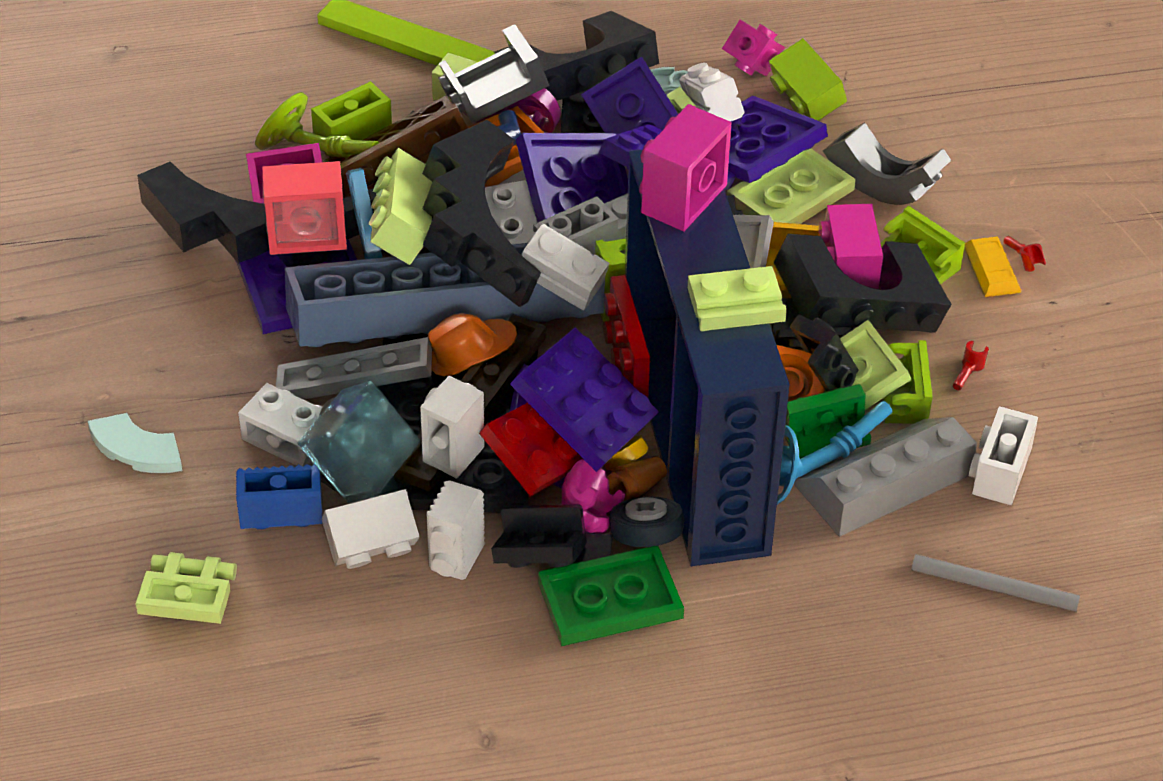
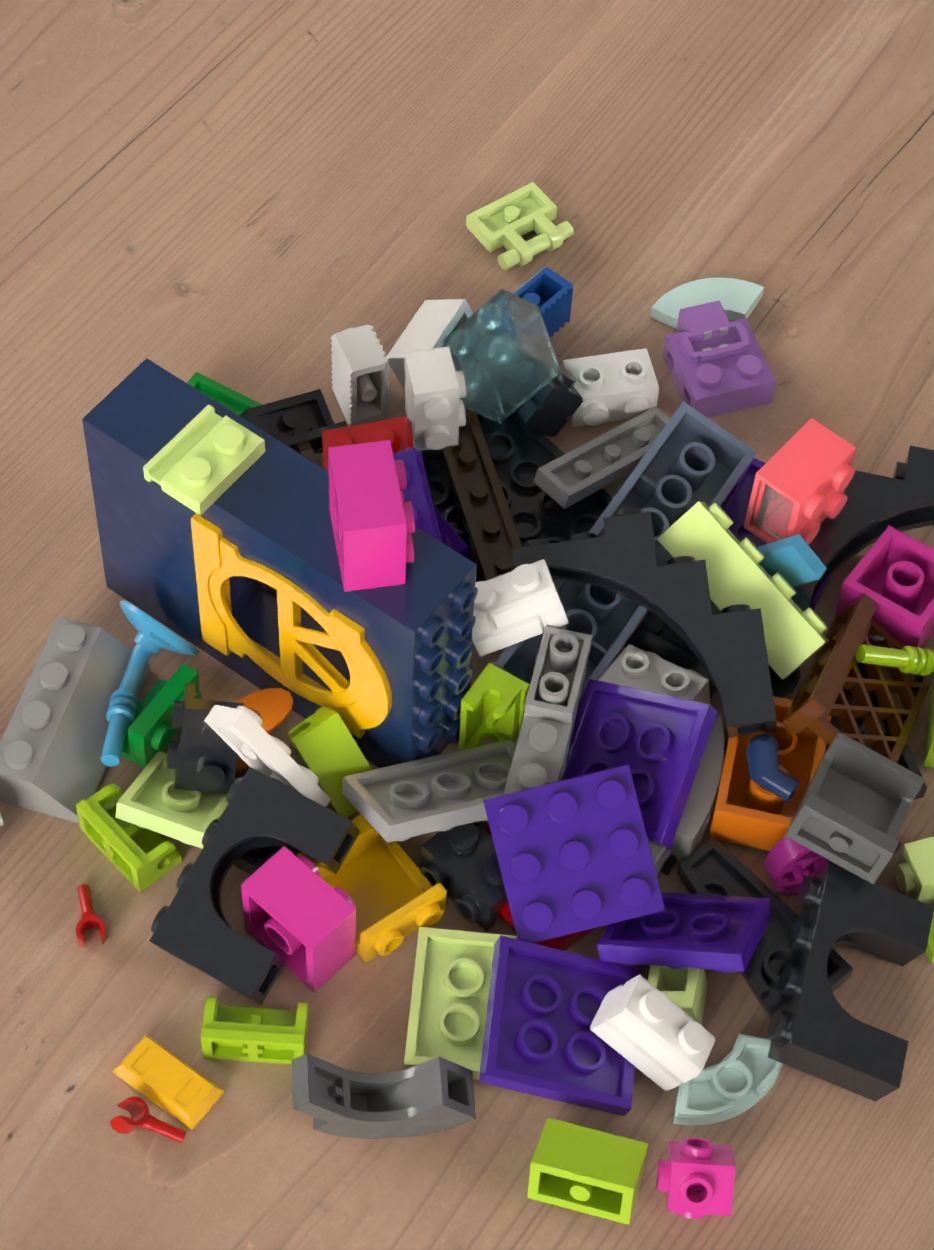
camera: 135 degrees right, 10 degrees up
(195, 394) = (717, 362): none -> medium lavender piece
(466, 341) = (538, 518): orange piece -> none
(806, 297) = (263, 752): none -> white plate

